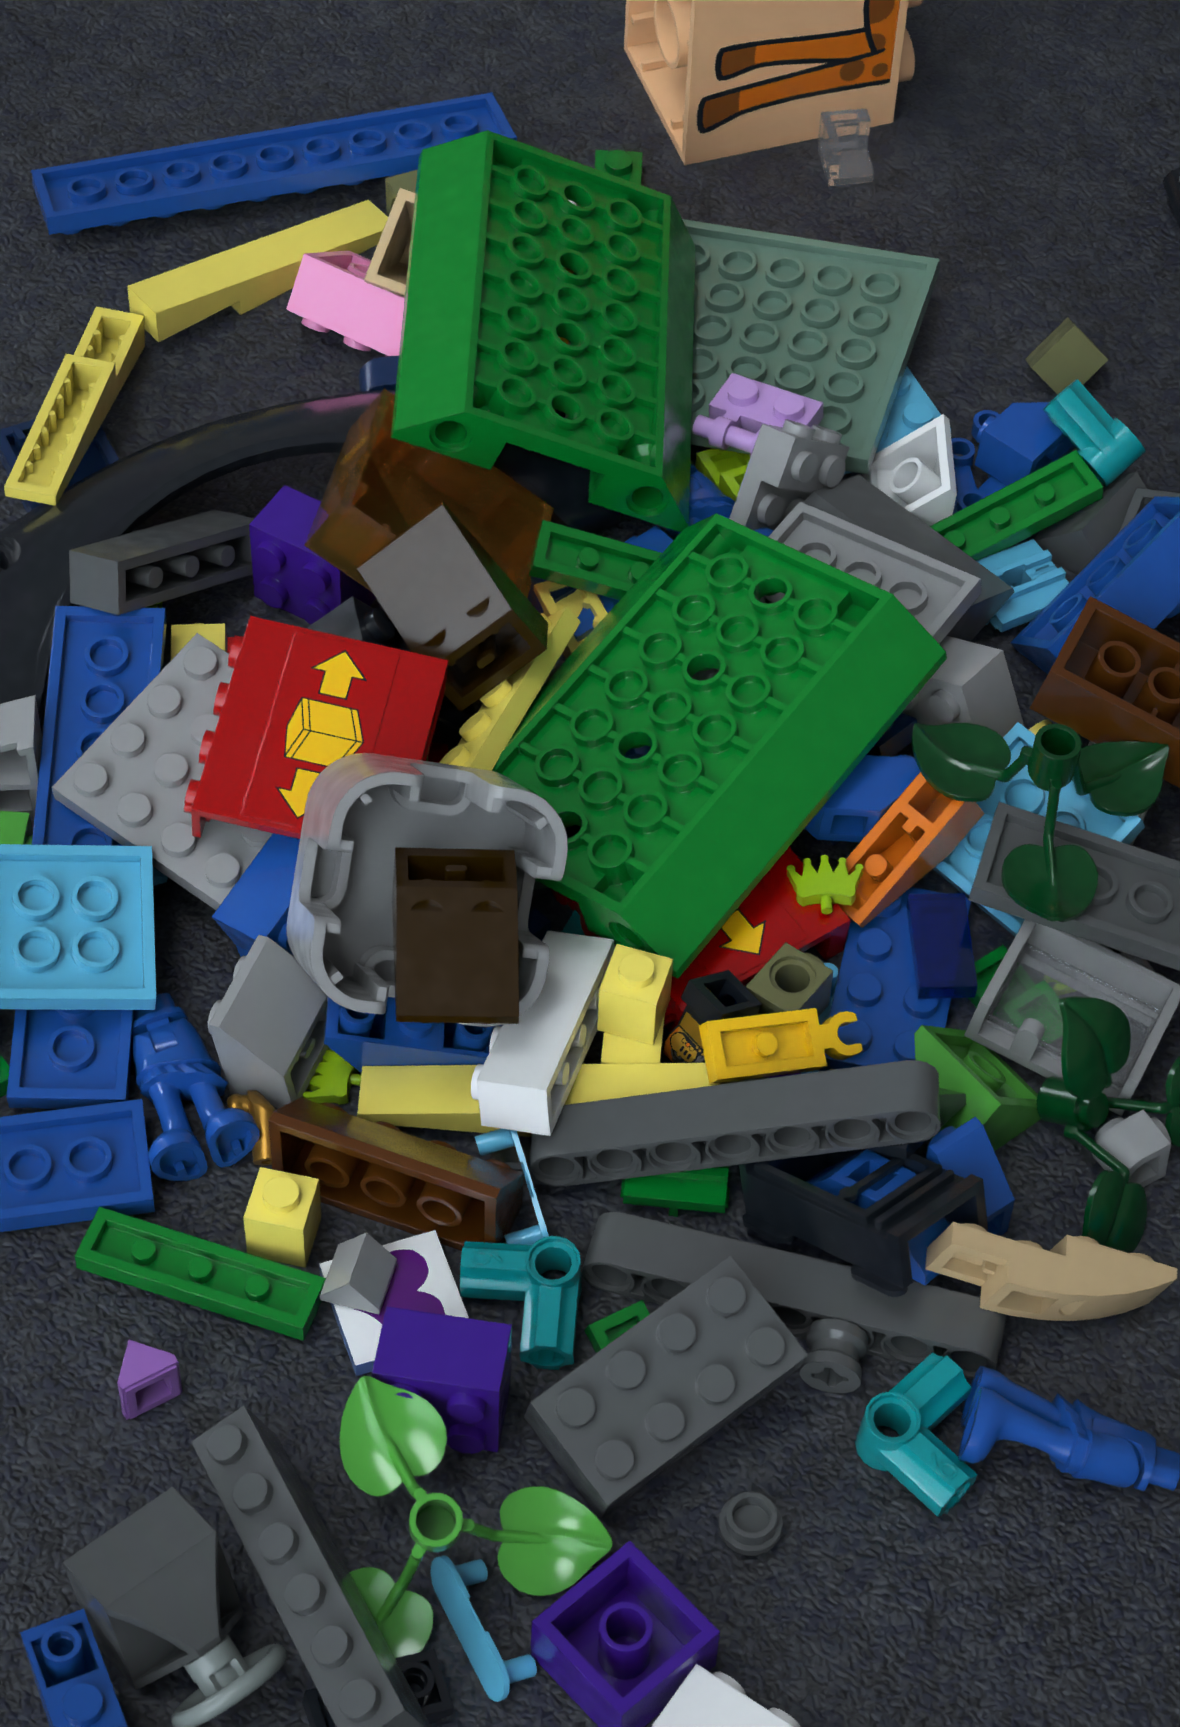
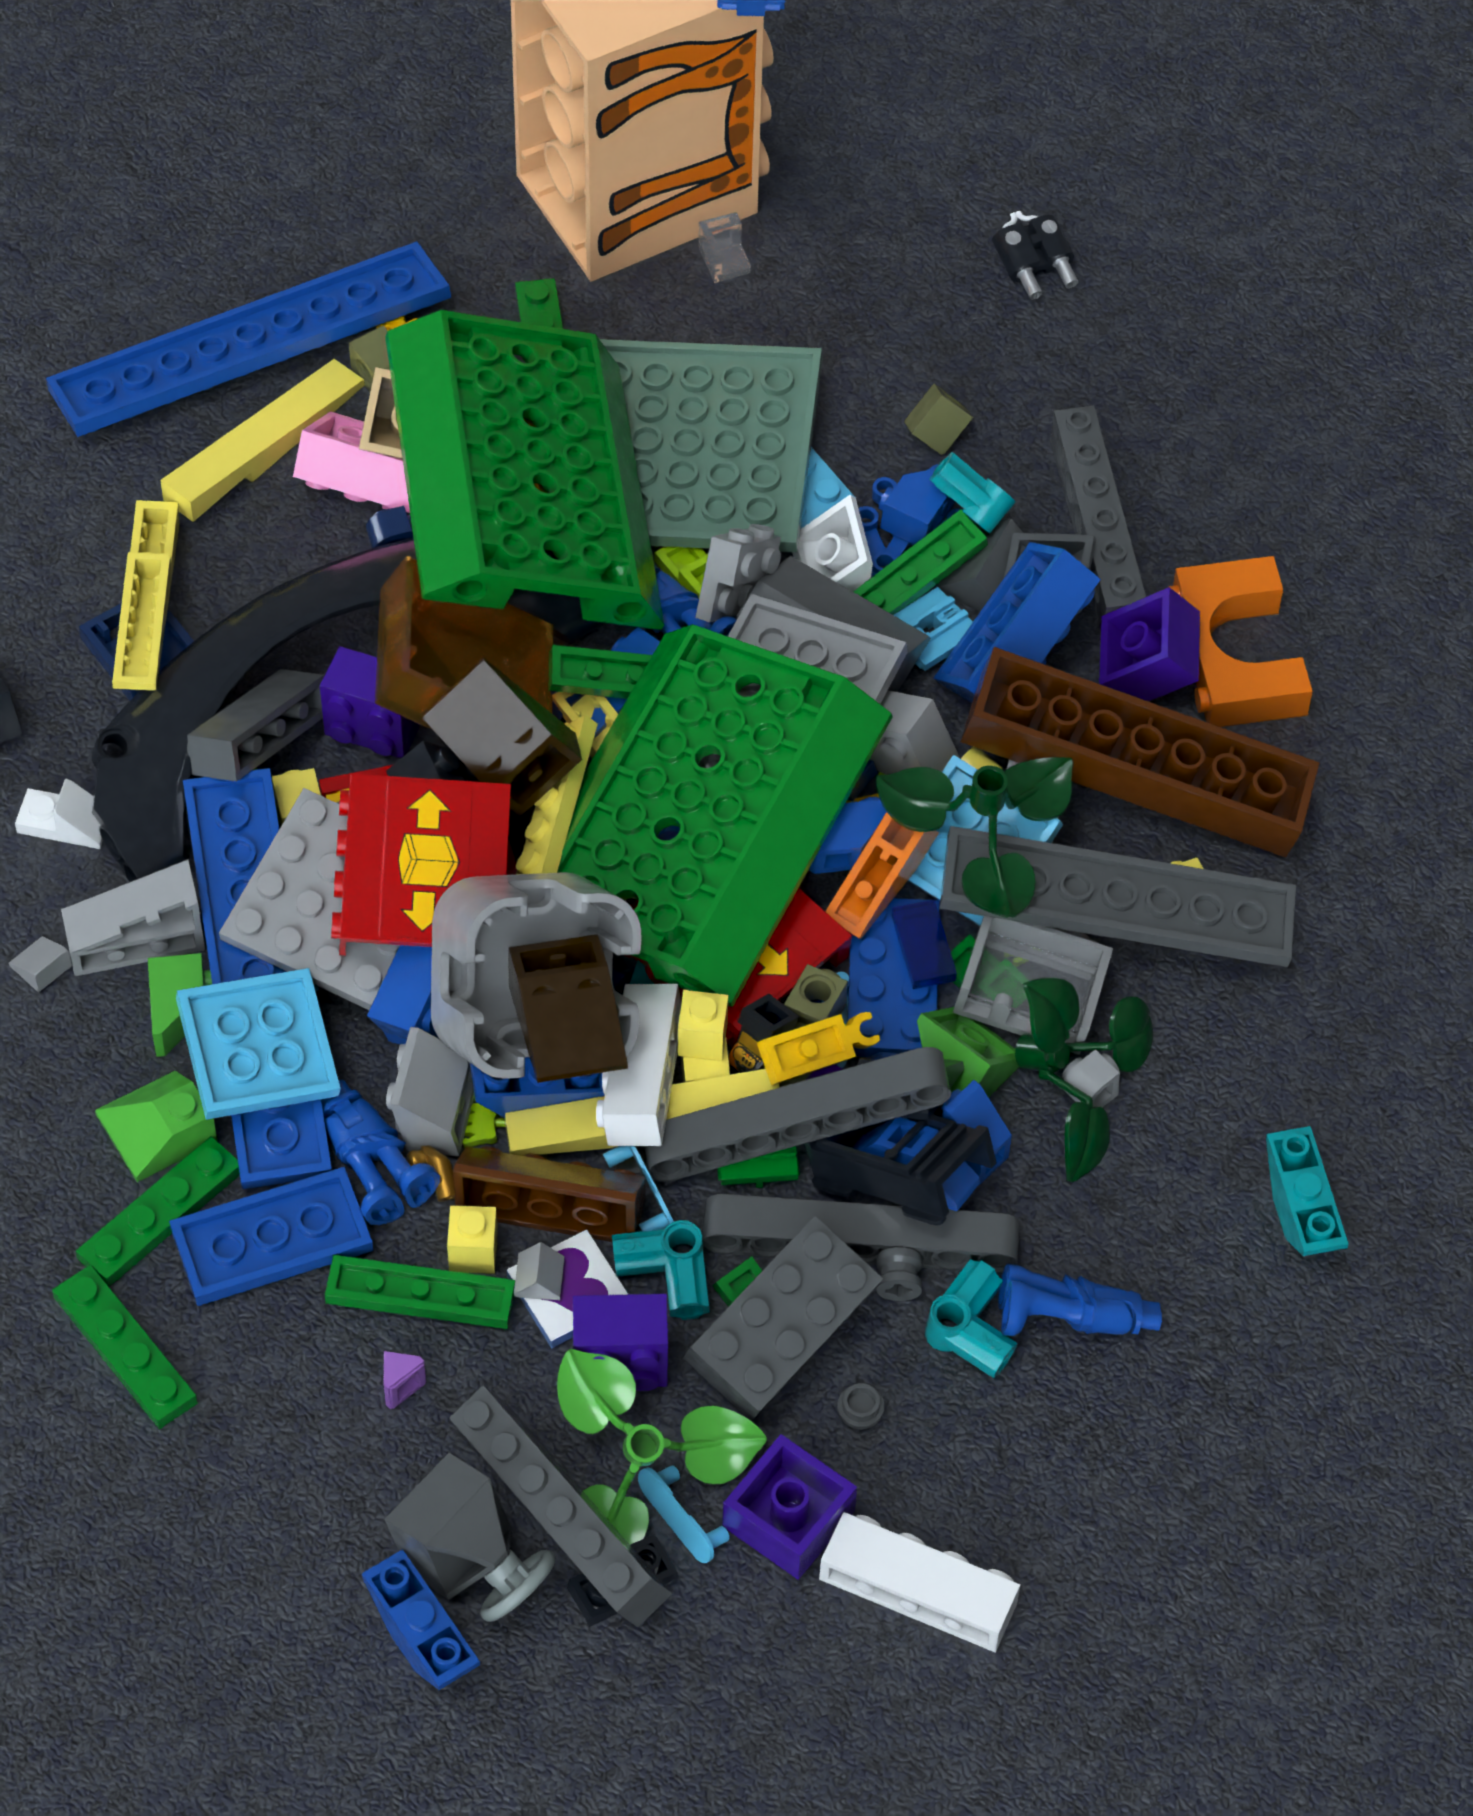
camera: 10 degrees left, 5 degrees up
(746, 405) = (701, 512): lavender plate -> none
(825, 886) = (829, 911): lime piece -> none
(1062, 1284) = (1055, 1193): tan slope -> none

